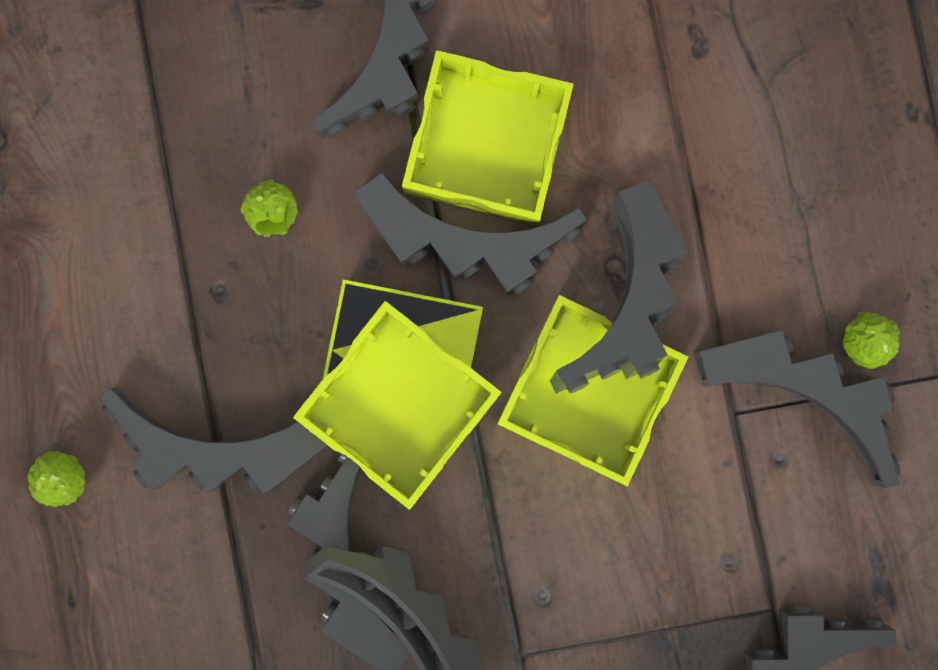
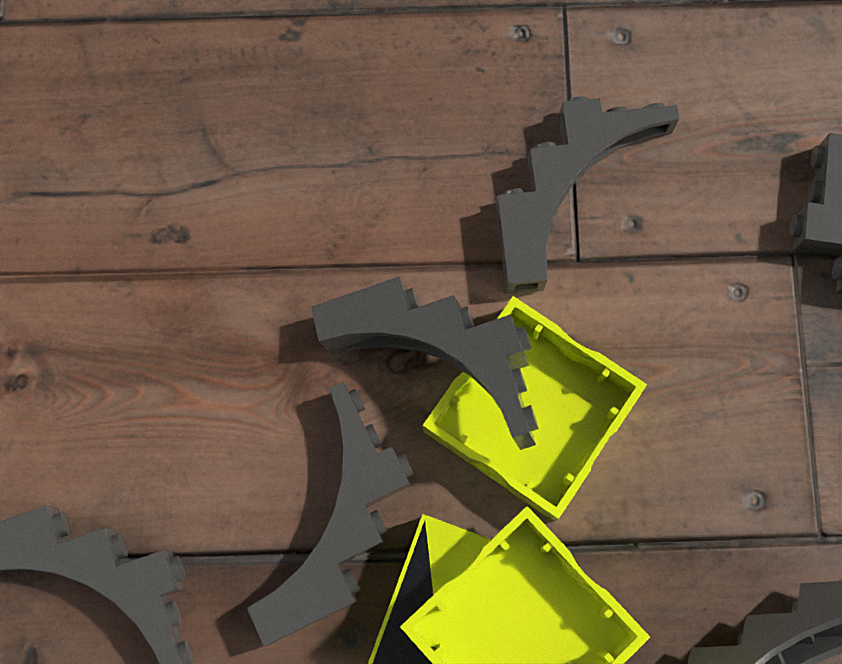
camera: 80 degrees left, 10 degrees down
(487, 138) = (230, 479): neon yellow tile -> none
(871, 340) = (521, 110): lime piece -> none

